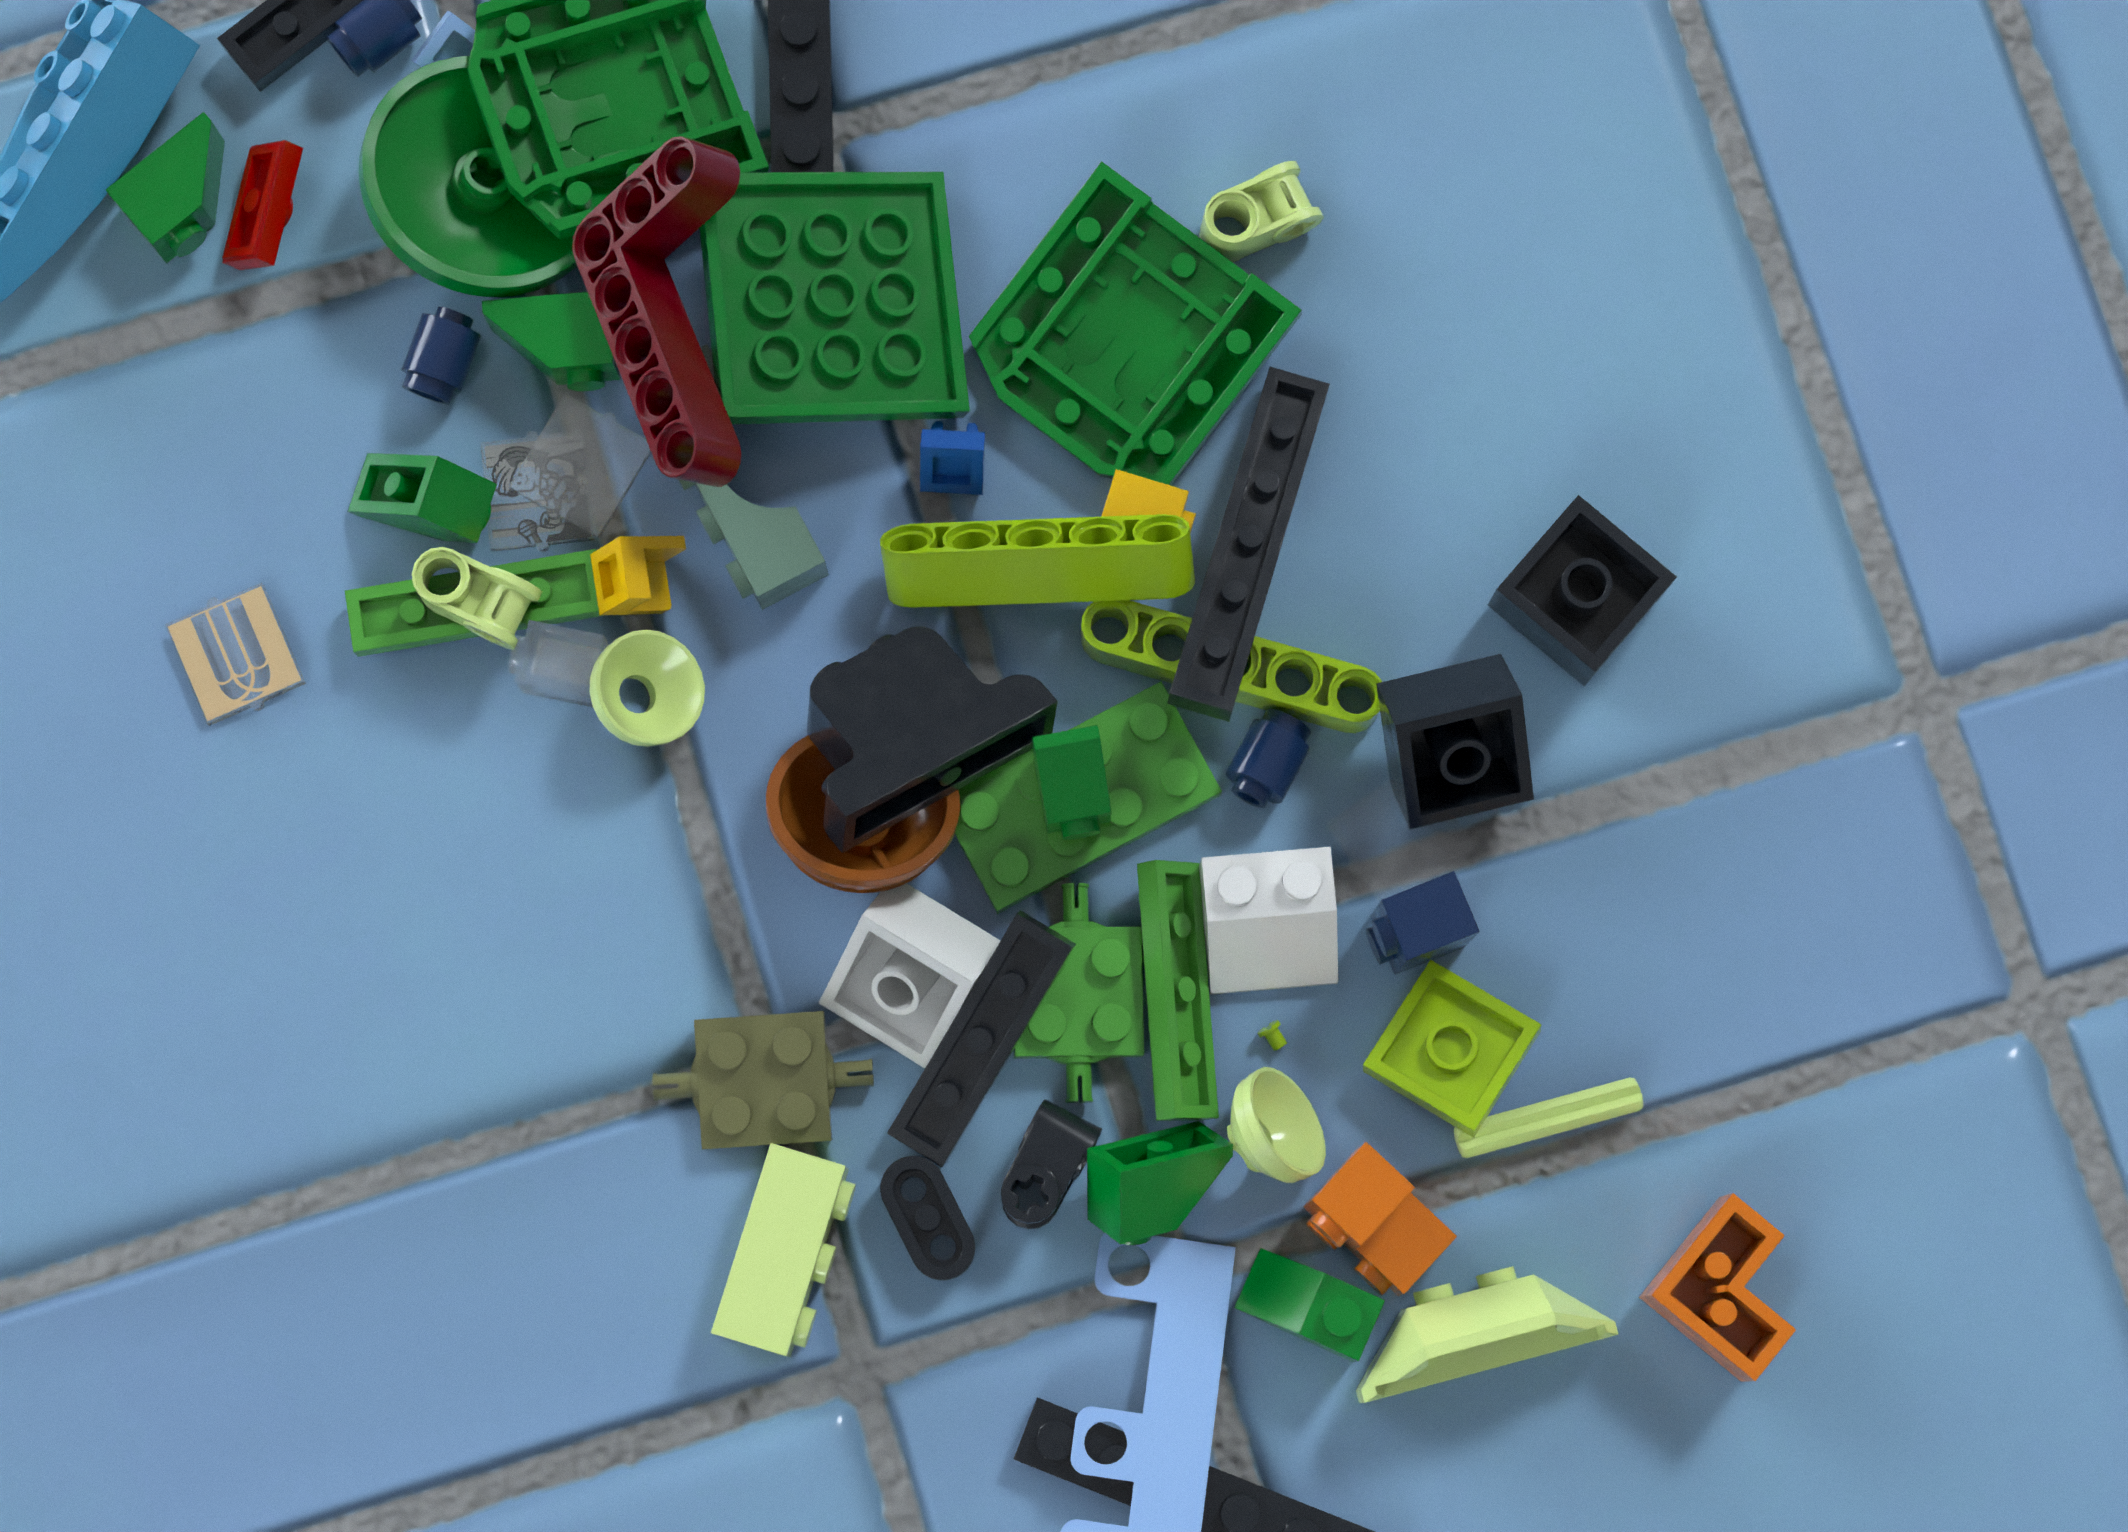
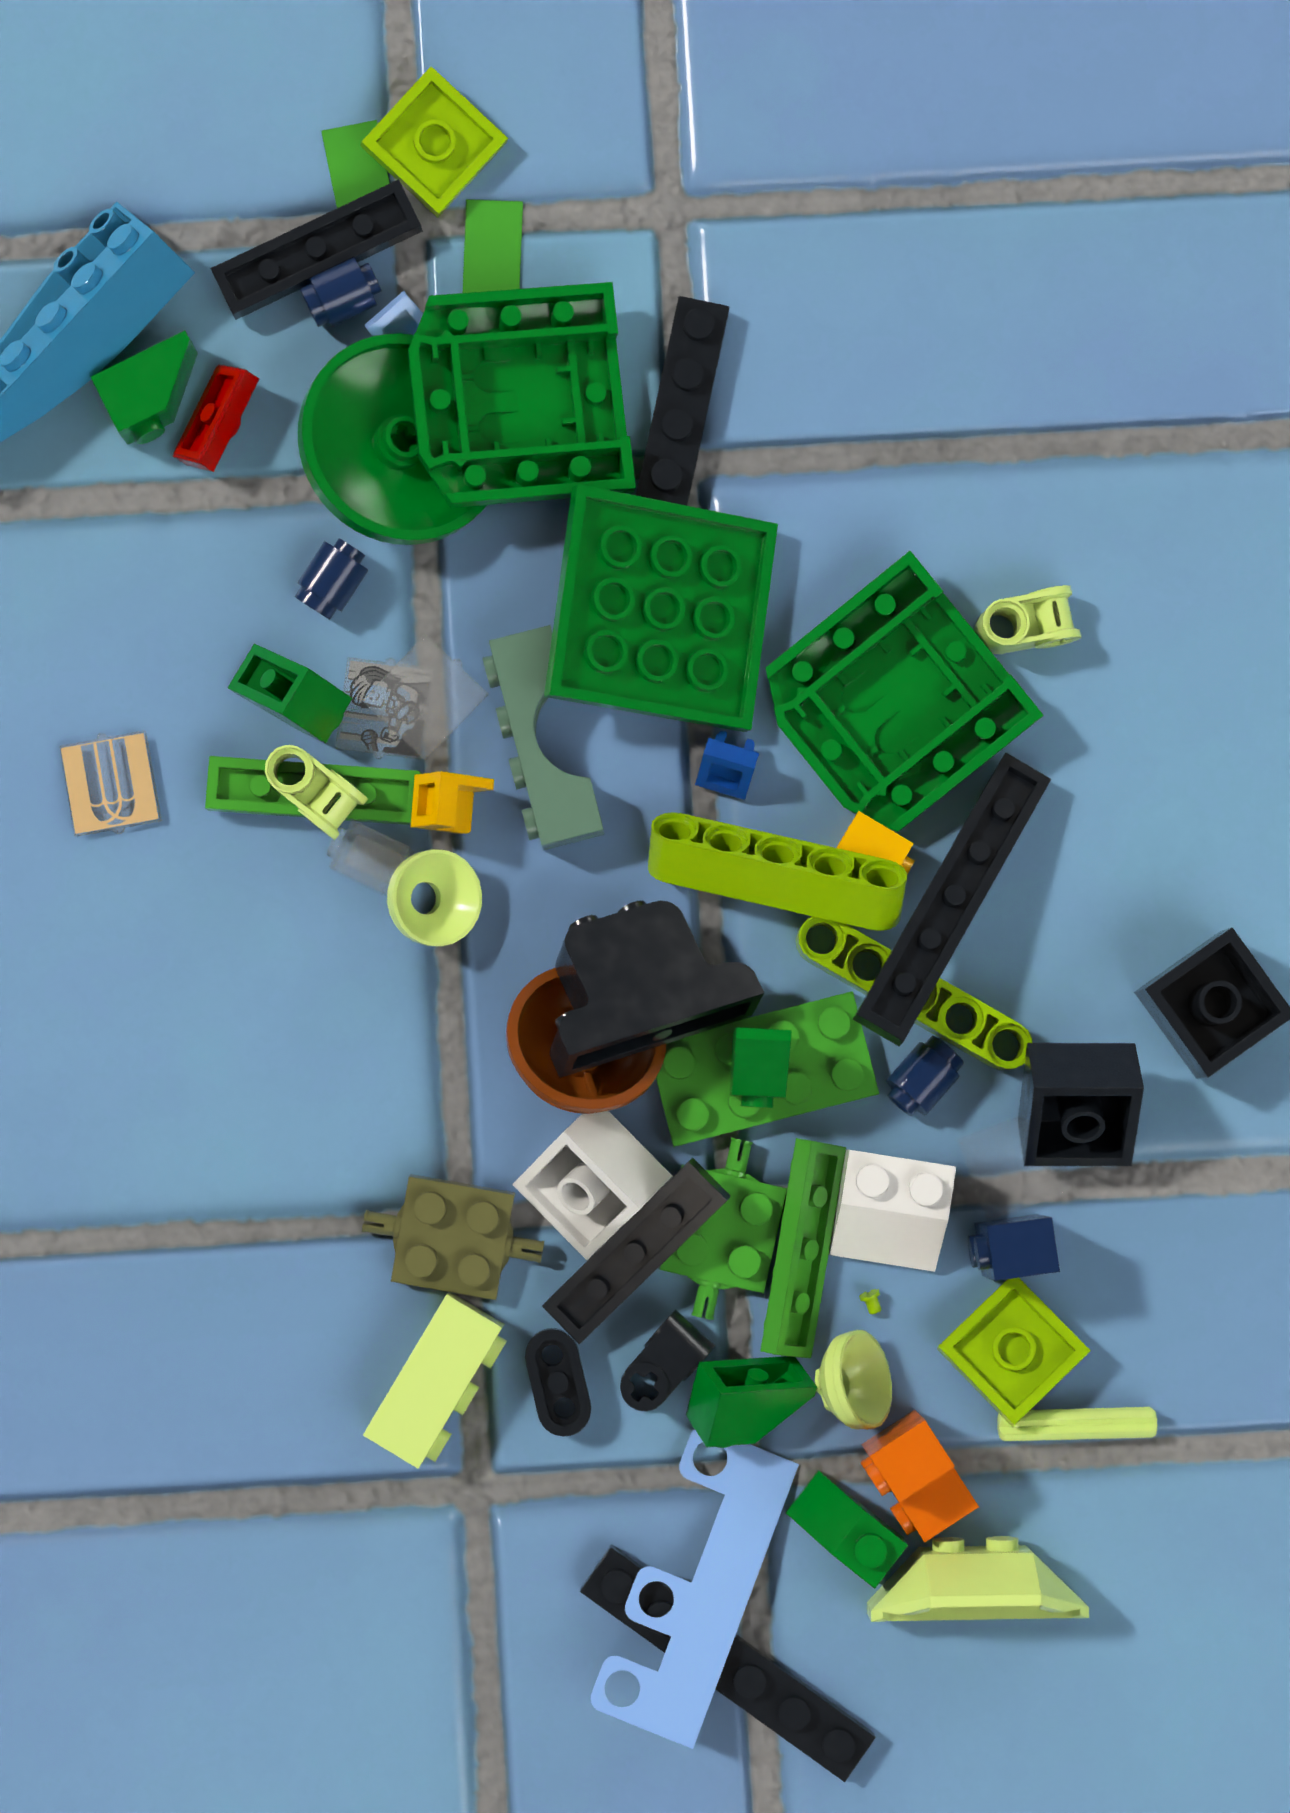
camera: 15 degrees right, 5 degrees up
(556, 336) = (435, 586): green slope -> none
(651, 338) = (504, 594): dark red beam -> none
(1705, 1289) = (1169, 1596): orange brick -> none

